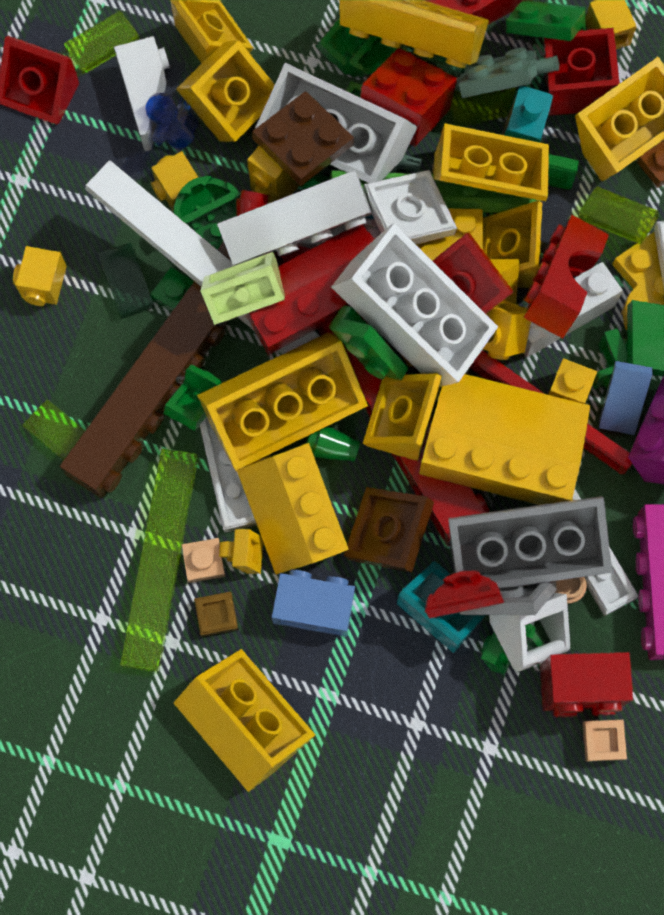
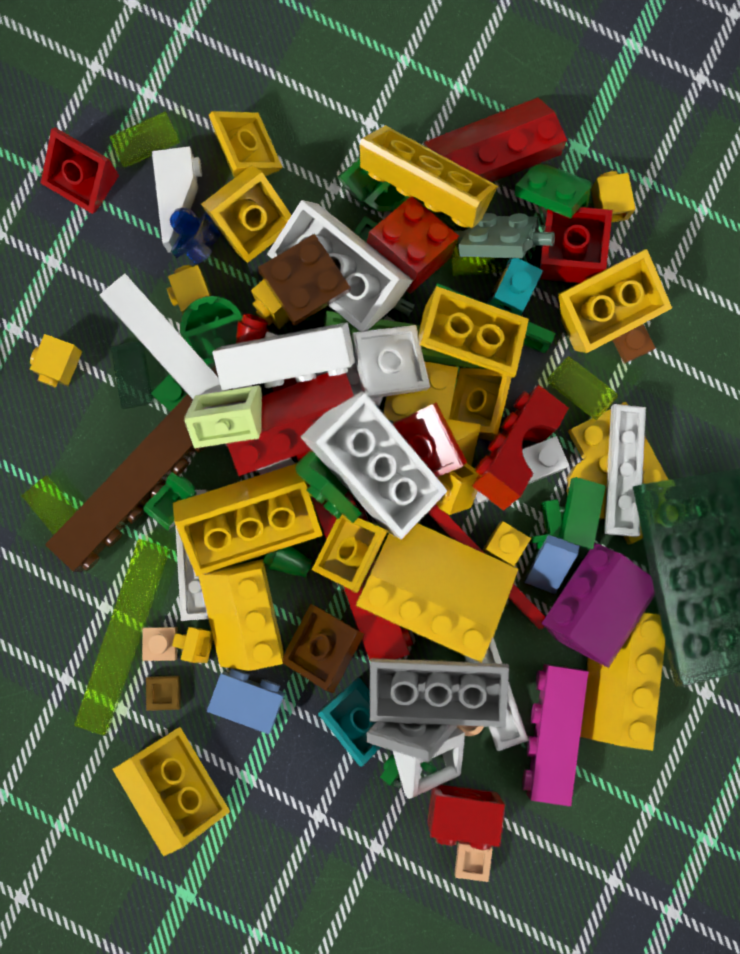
camera: 10 degrees right, 10 degrees up
(463, 592) = (371, 726): red tile -> none

